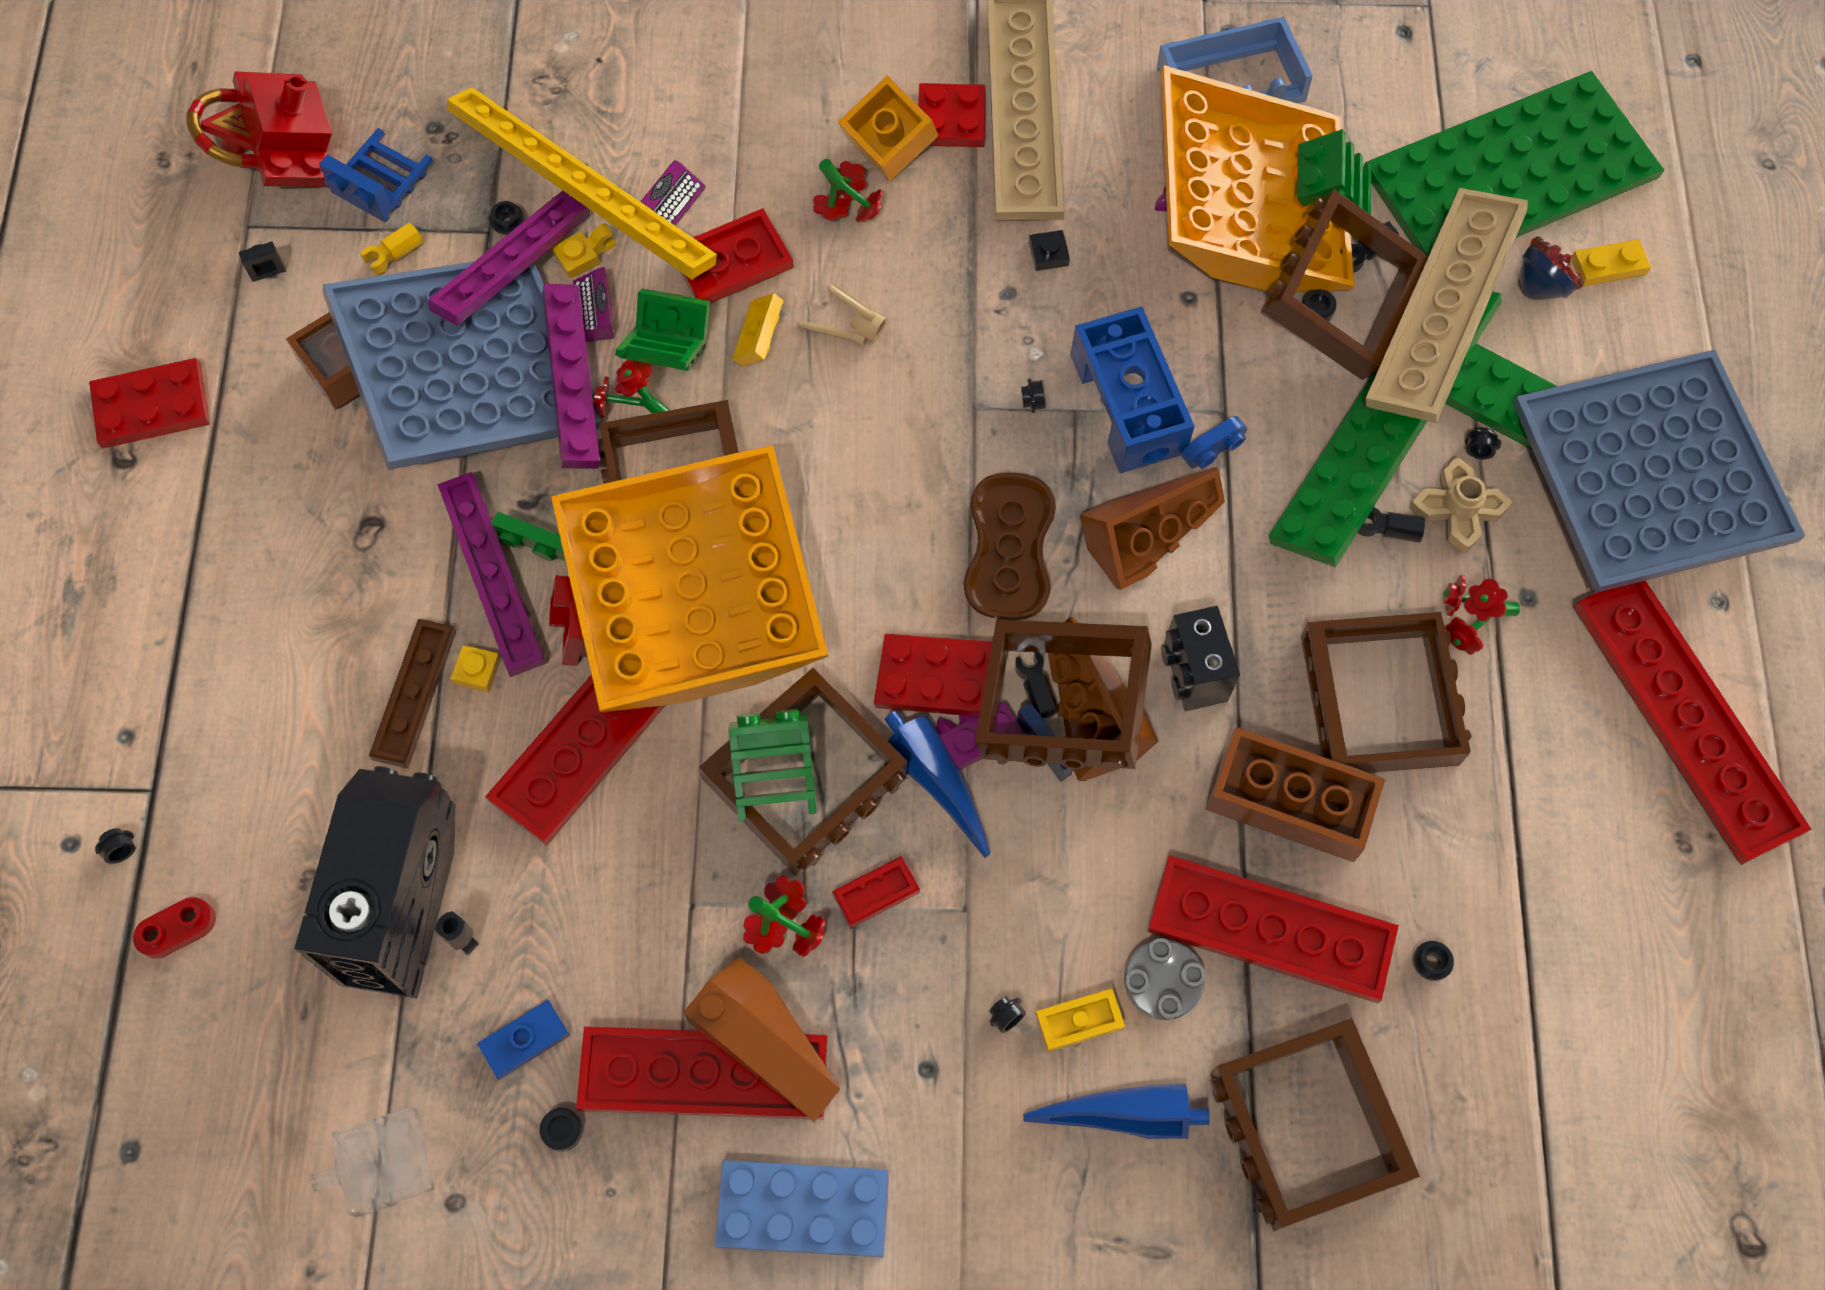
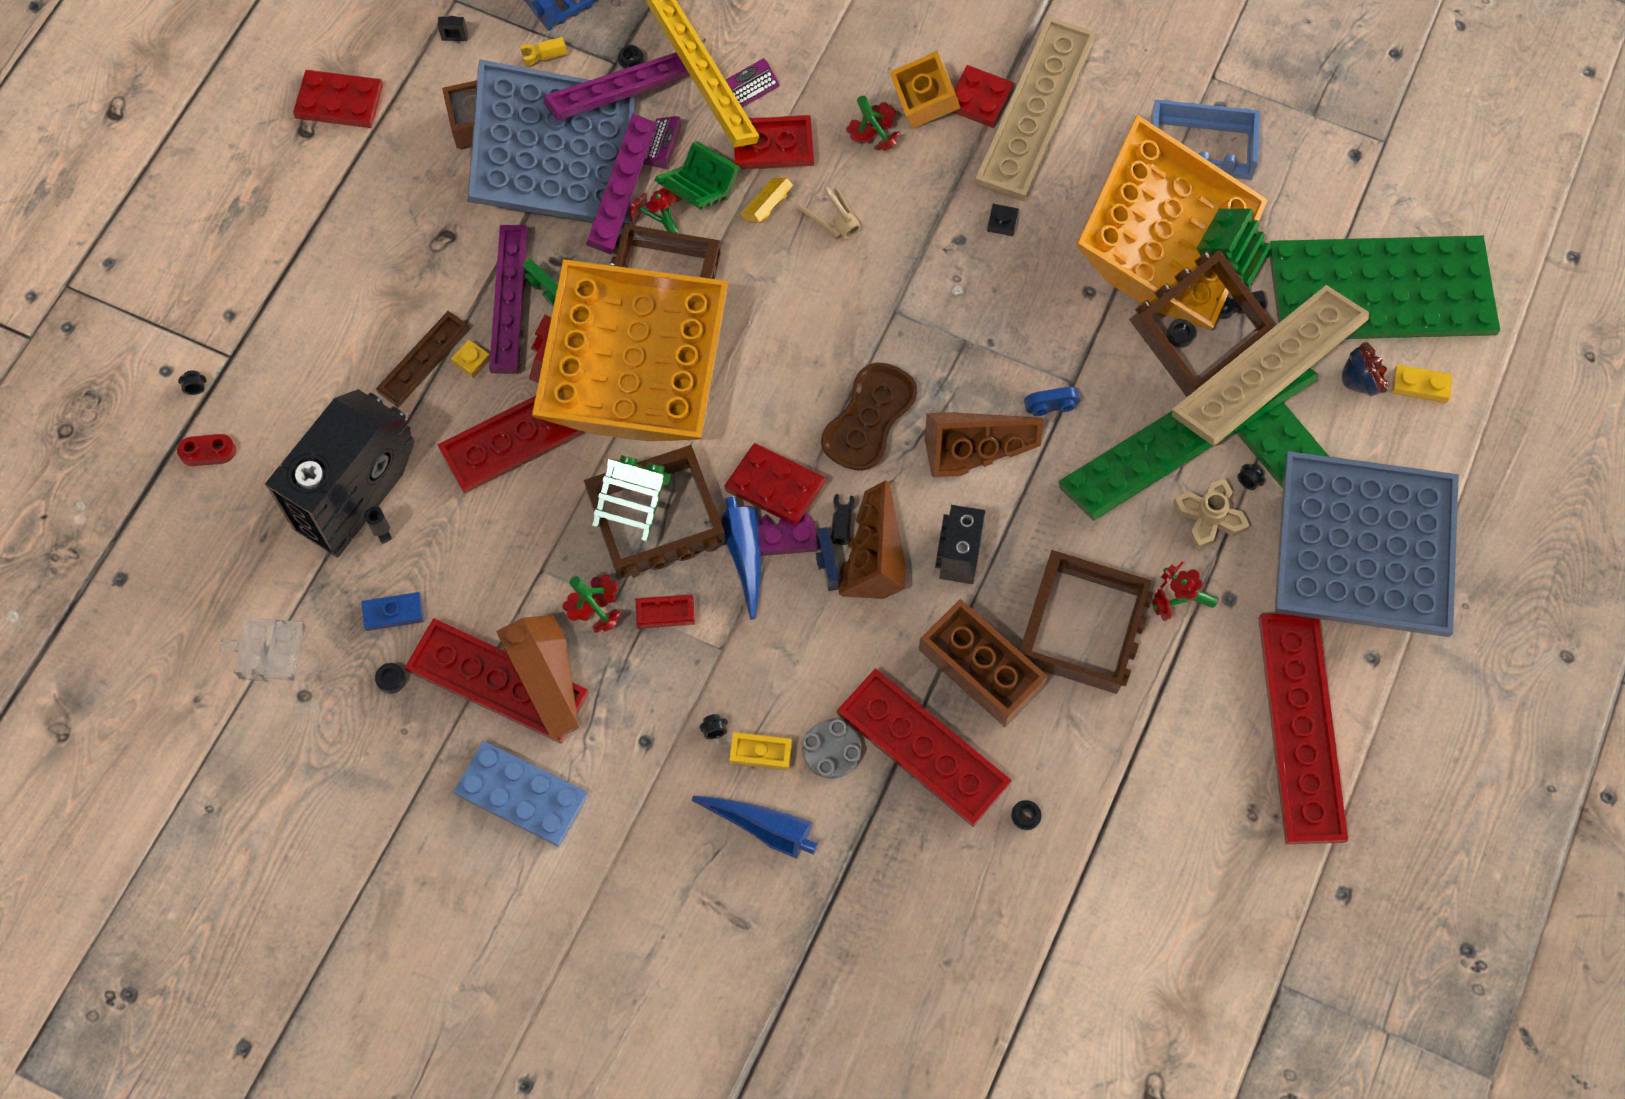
camera: 25 degrees right, 0 degrees up
(580, 253) = (669, 101): yellow plate -> none
(1033, 395) = (939, 318): black plate -> none
(1065, 639) = (867, 490): reddish brown window -> none
(1148, 417) = (1006, 362): blue plate -> none
(1372, 1102) = (835, 936): reddish brown window -> none
(1394, 526) = (1153, 509): black bar -> none

